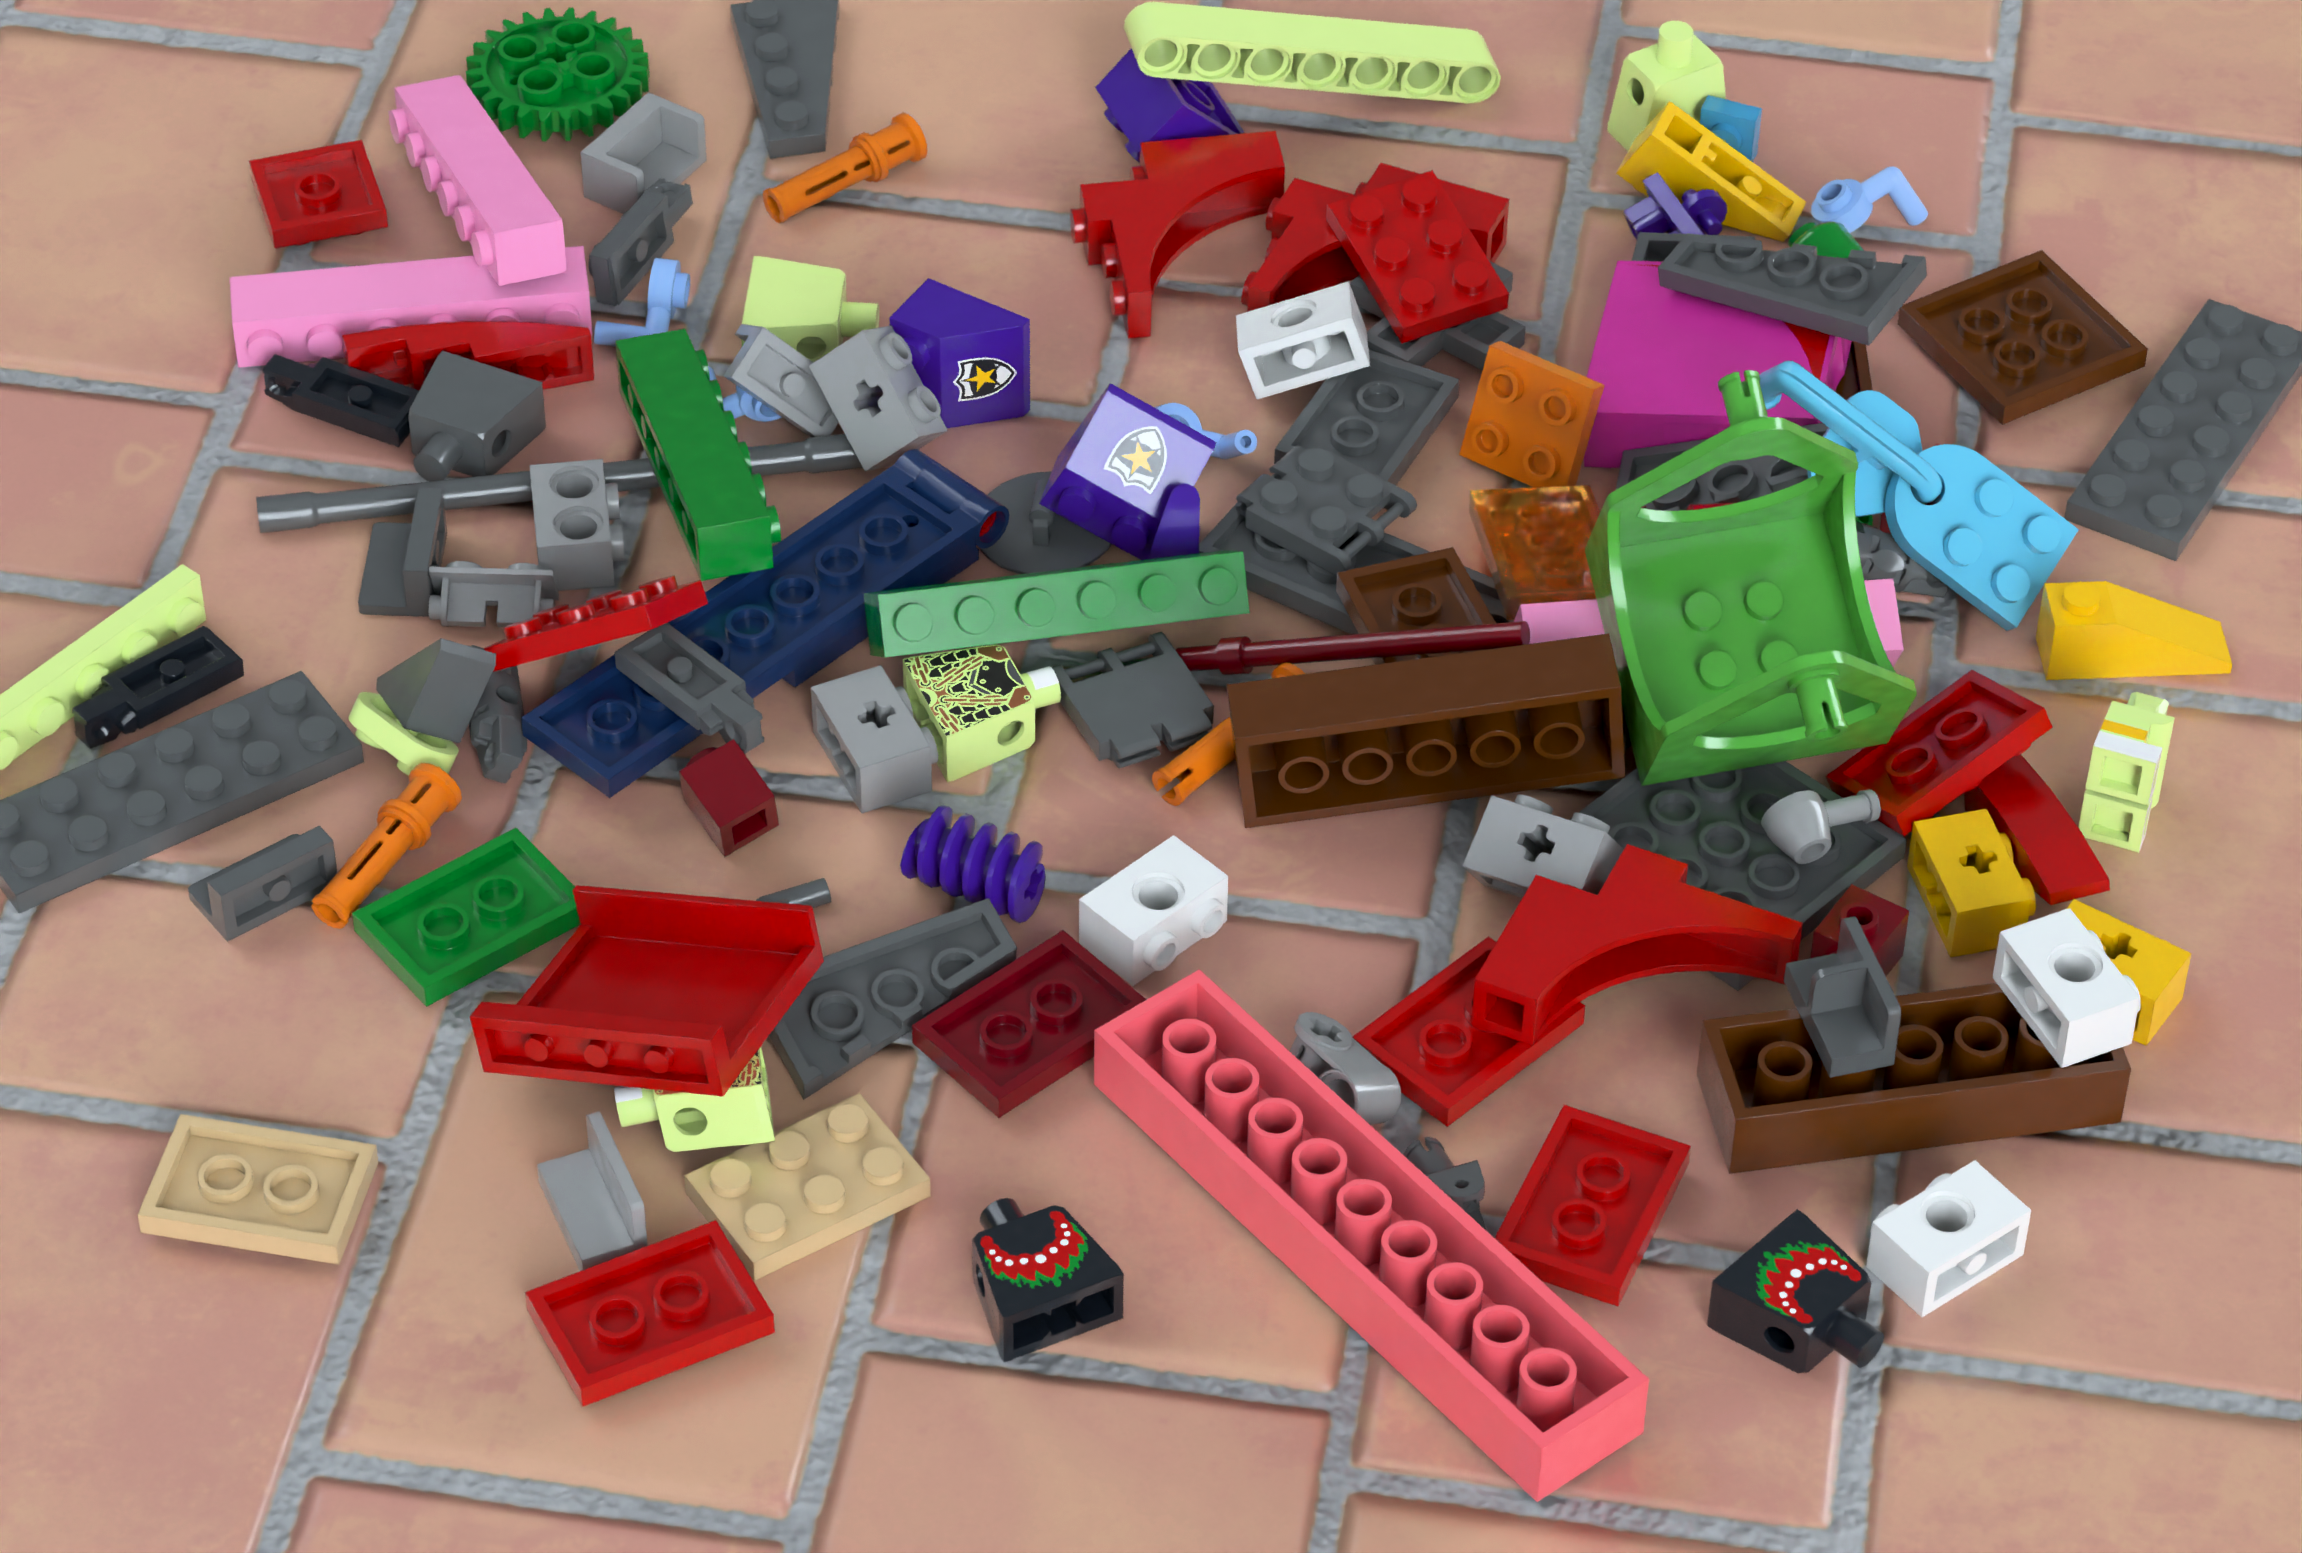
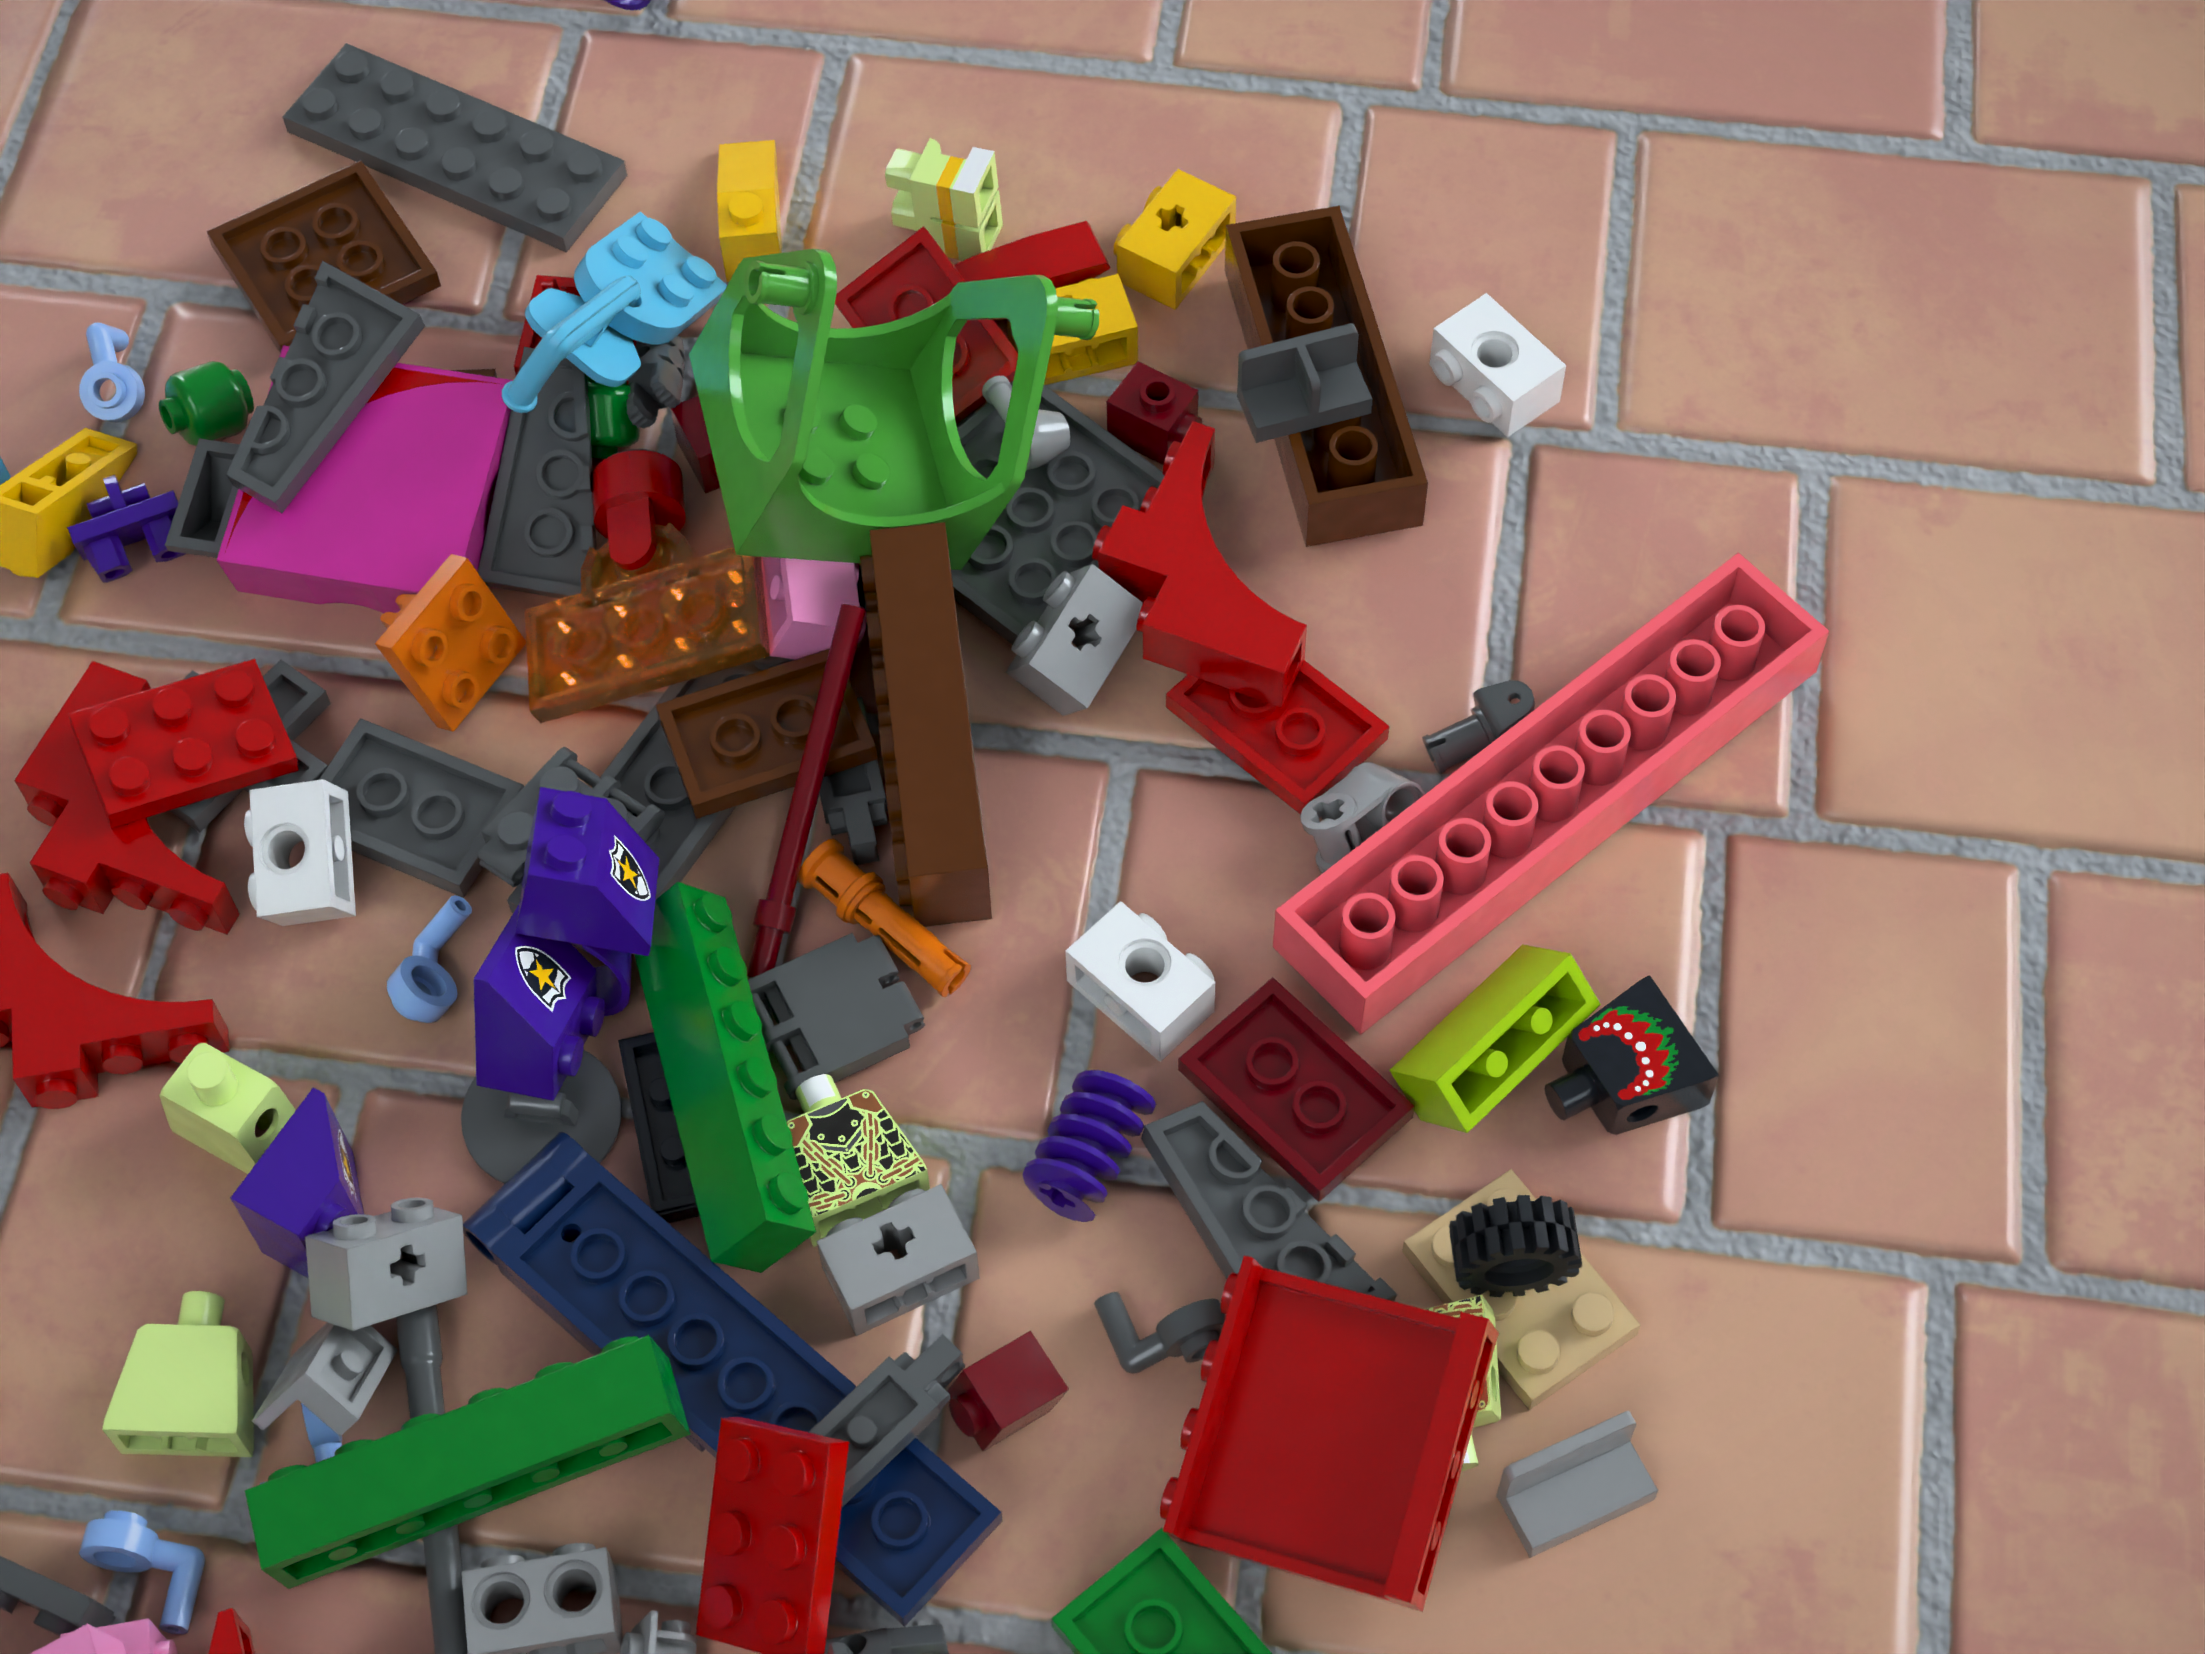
camera: 90 degrees left, 15 degrees up
(649, 1313) = (1718, 1418): red plate -> none
(812, 1117) = (1515, 1246): none -> black tyre
(1061, 306) = (219, 1103): none -> yellowish green torso
(1066, 1158) = (1495, 1037): none -> lime brick
(1236, 475) = (587, 876): none -> dark purple slope
(1592, 1203) = (1481, 621): red plate -> none
(1796, 1299) = (1576, 472): black torso -> none
(2066, 987) = (1276, 228): white brick -> none

